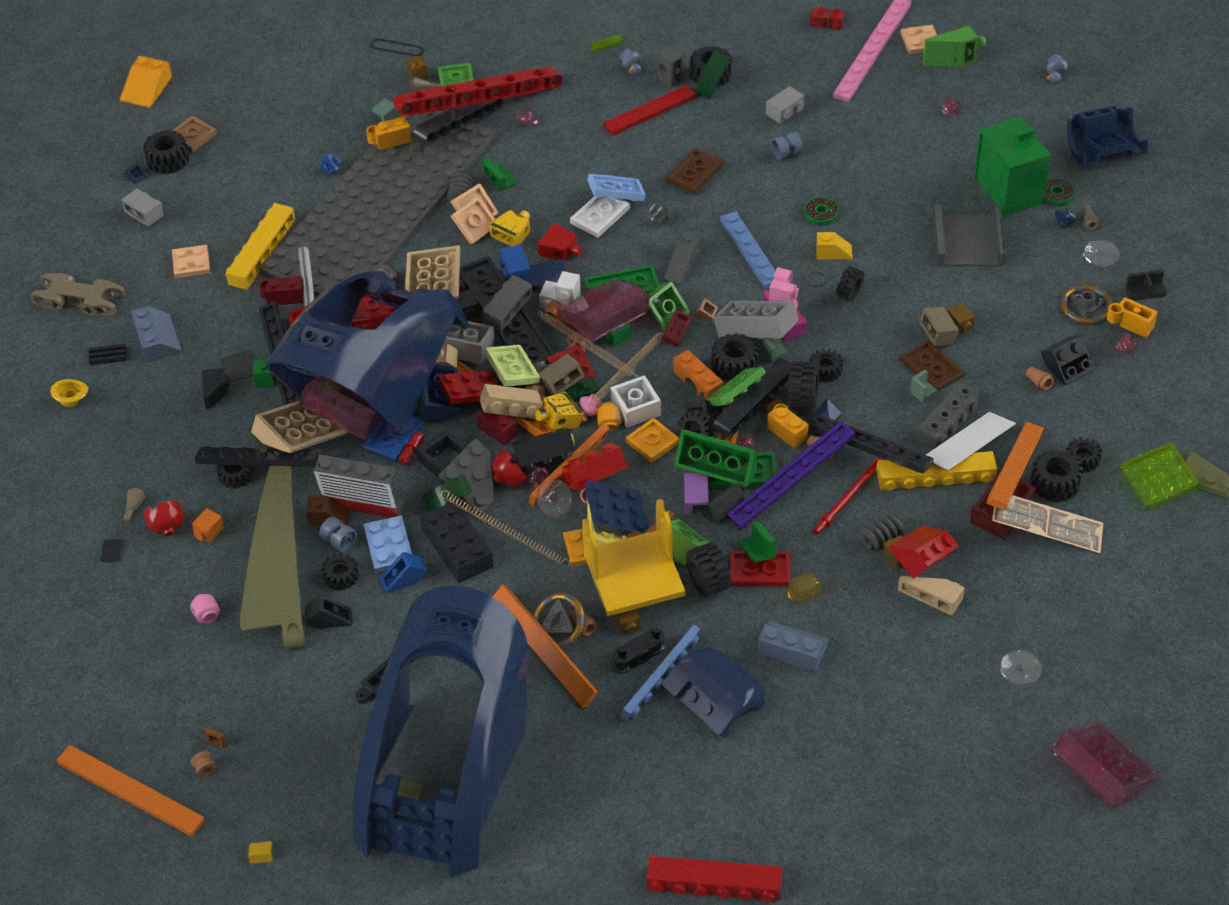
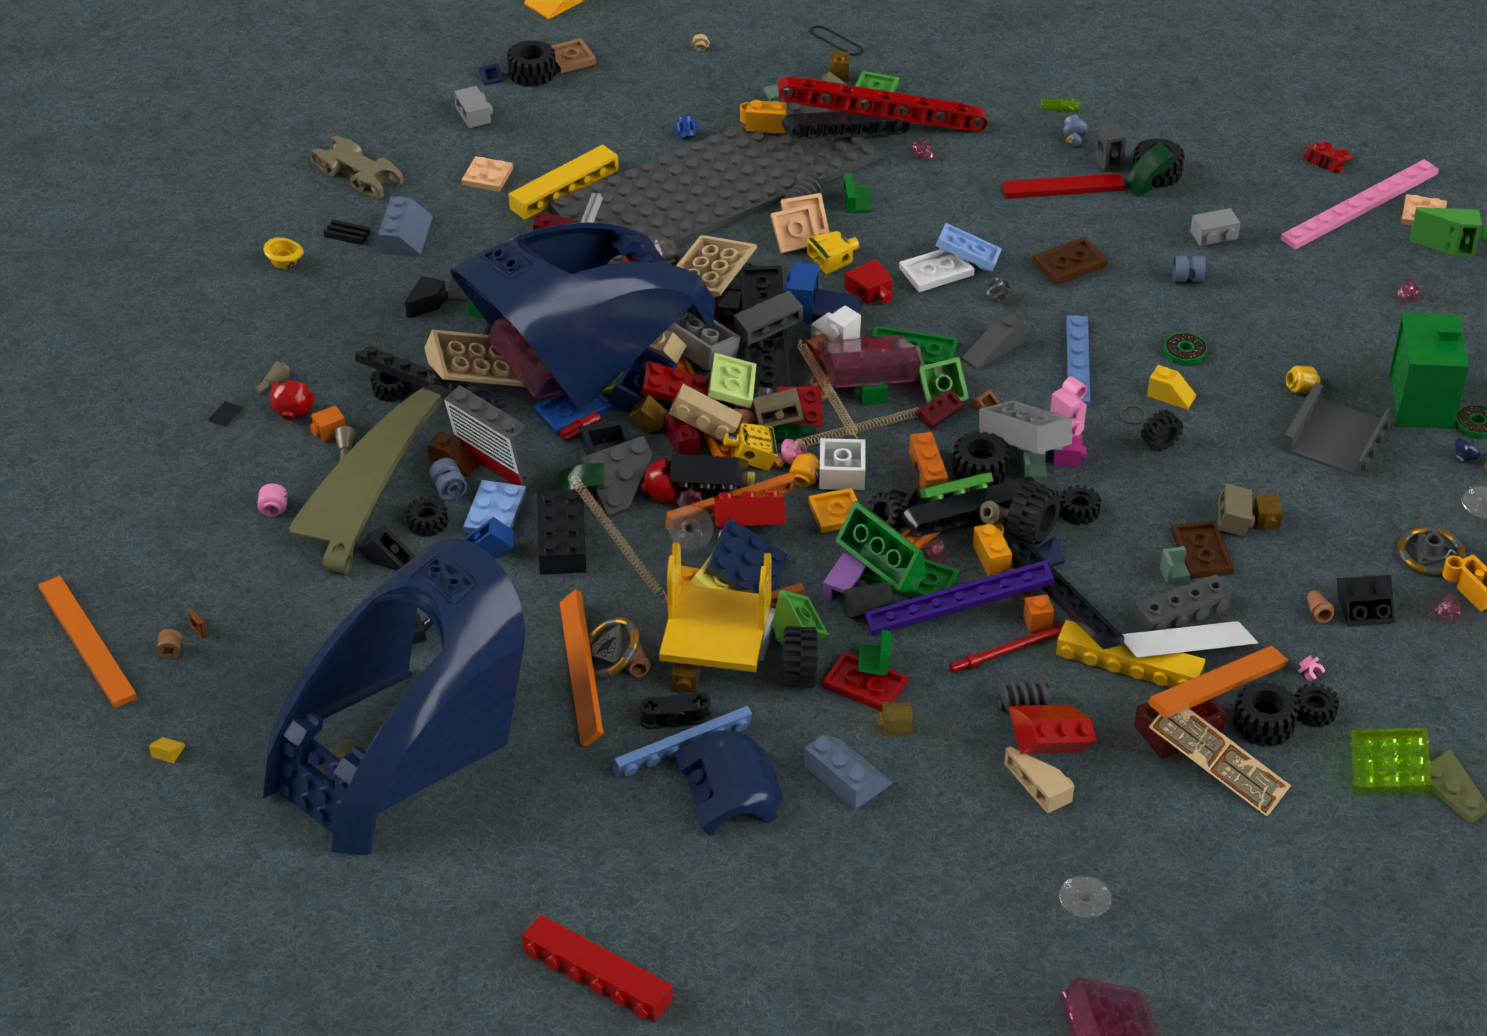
camera: 25 degrees right, 5 degrees down
(228, 532) = (344, 437): none -> dark tan cone
(291, 86) = (700, 42): none -> tan plate
(461, 418) = (648, 415): none -> pearl gold brick
(773, 397) = (992, 512): none -> dark tan cone
(852, 463) = (1038, 613): none -> orange brick
(920, 205) = (1302, 379): none -> yellow head
(1062, 426) = (1309, 665): none -> bright pink plate

